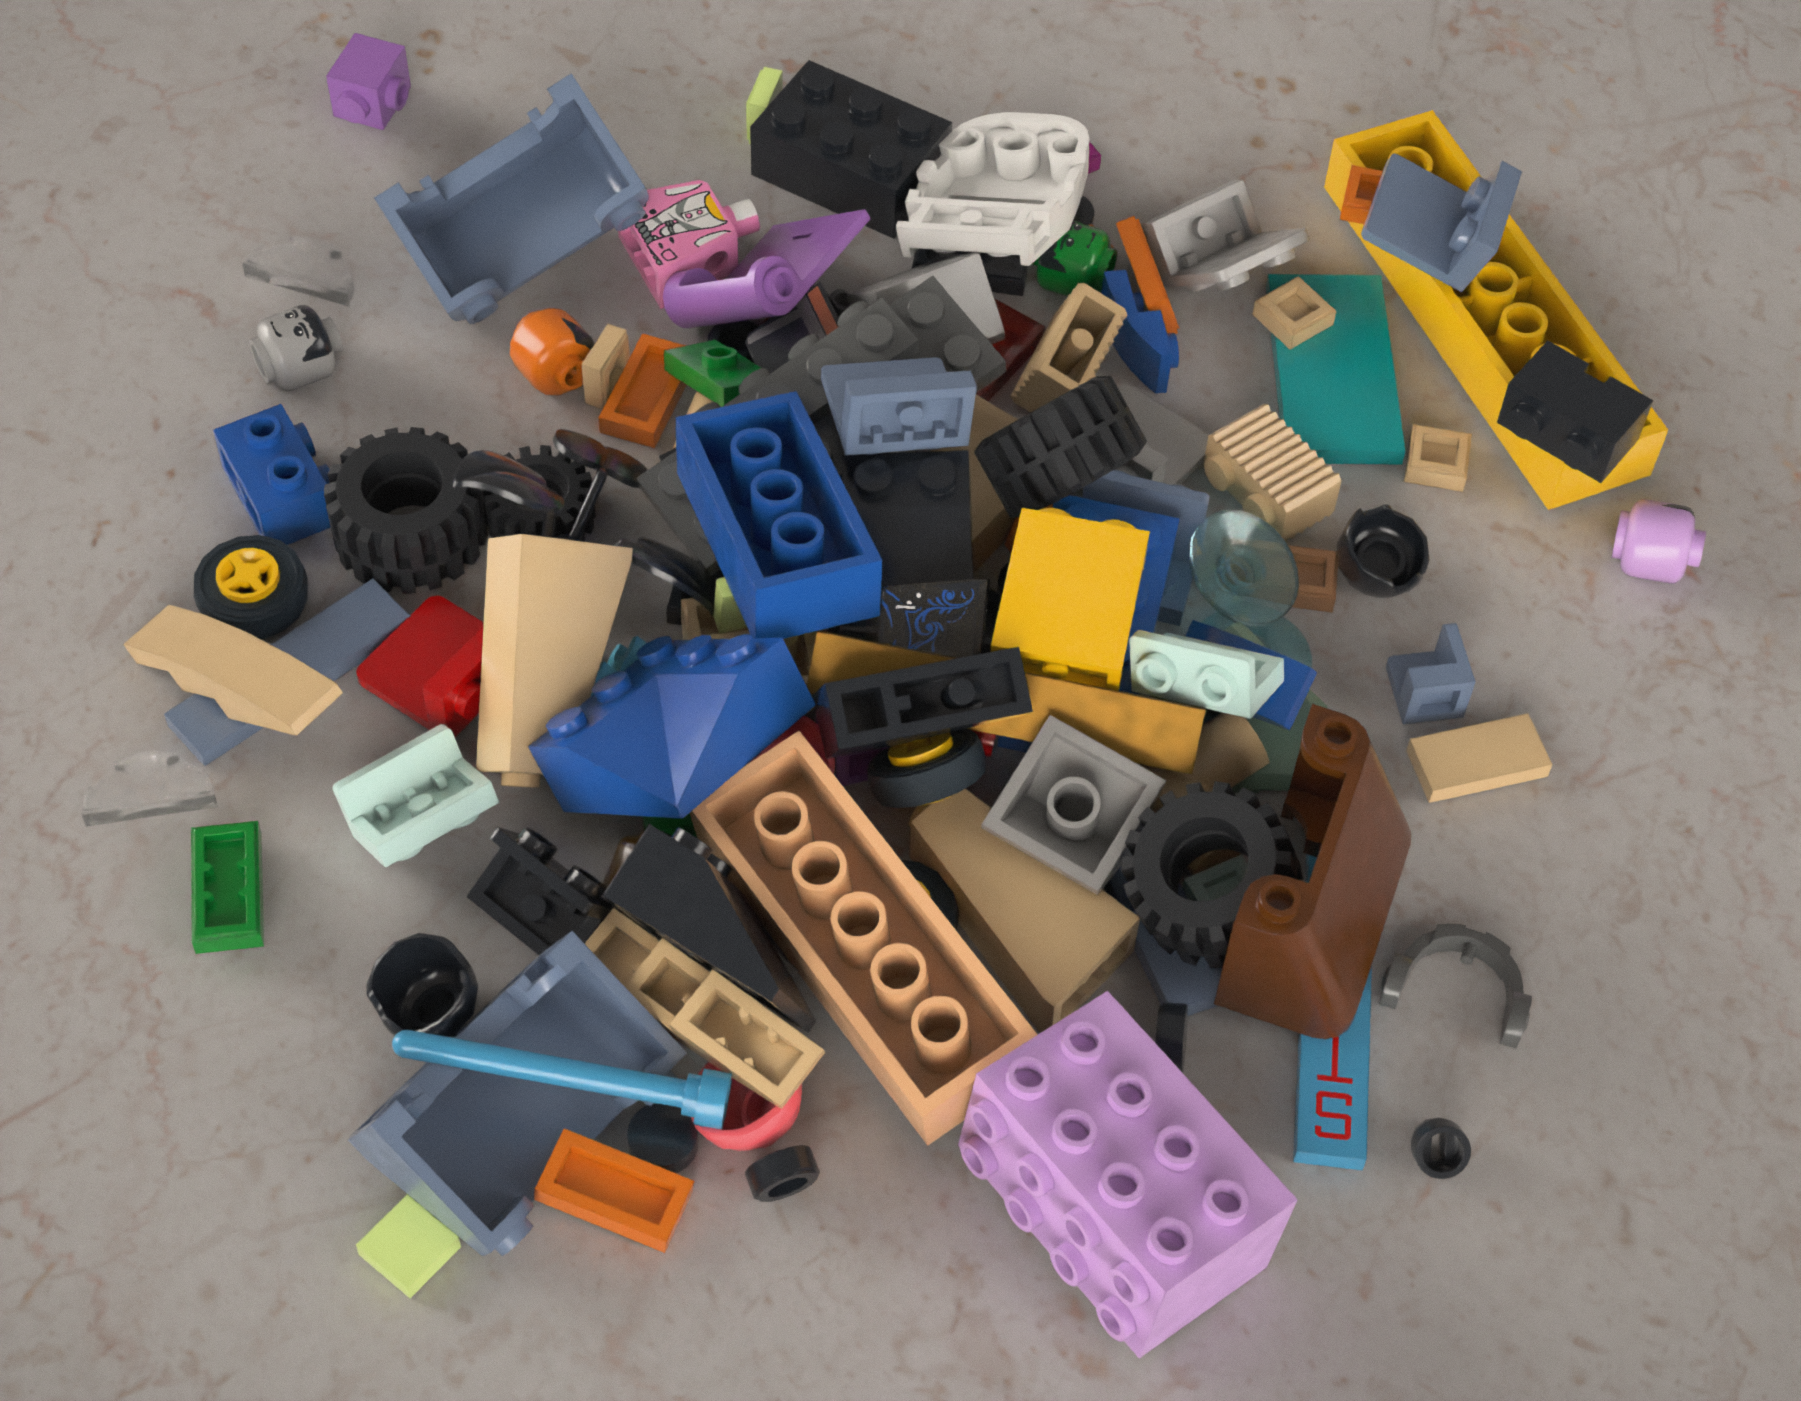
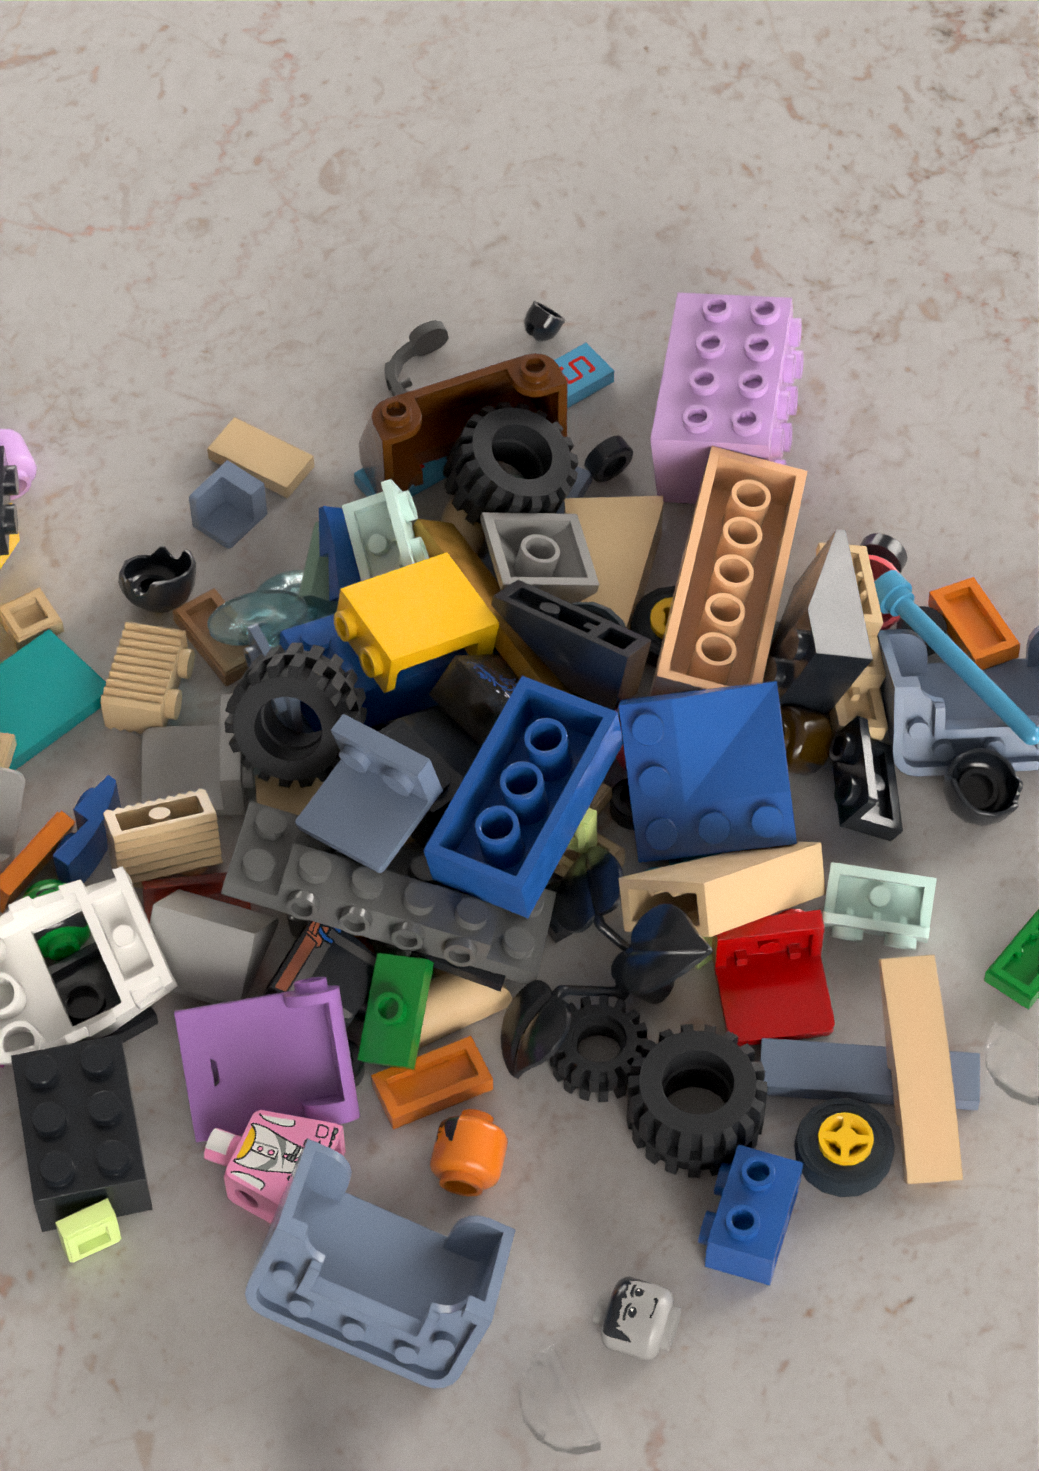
camera: 130 degrees left, 0 degrees up
(604, 365) = (444, 1103): tan tile -> none

